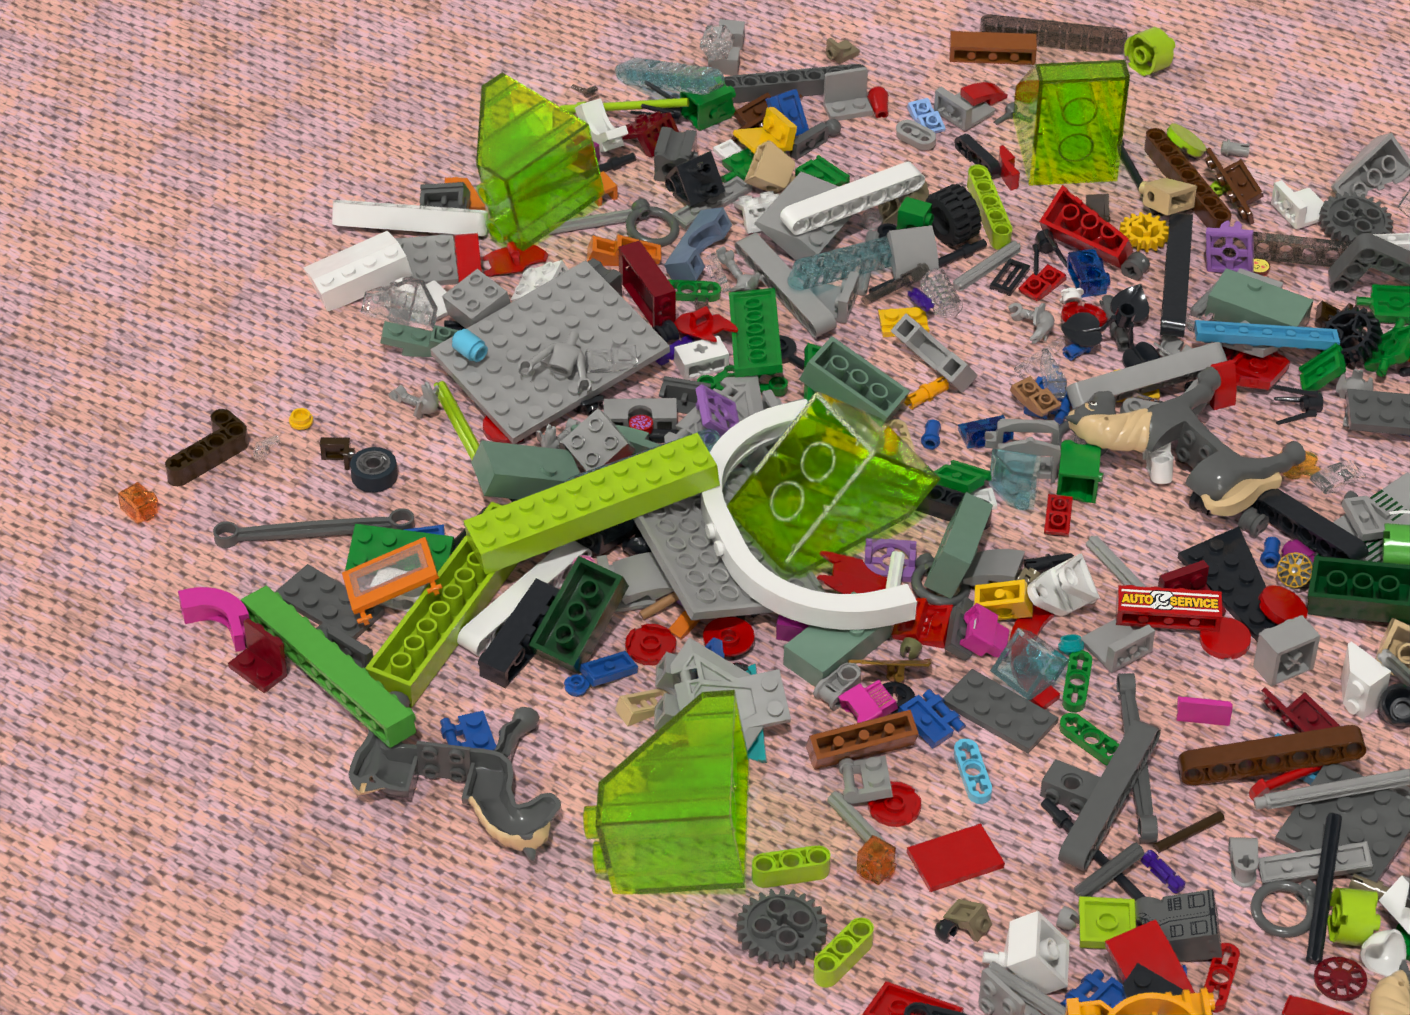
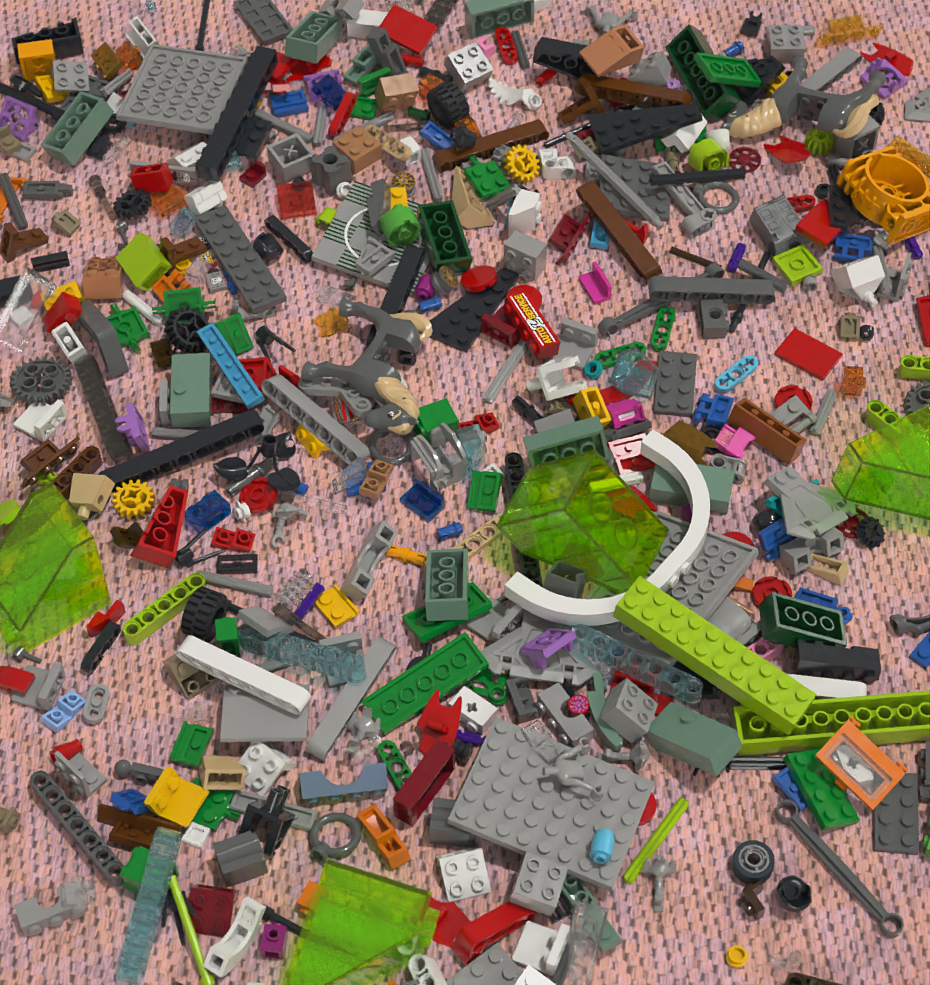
camera: 120 degrees left, 10 degrees up
(315, 474) = (793, 893): none -> black hair

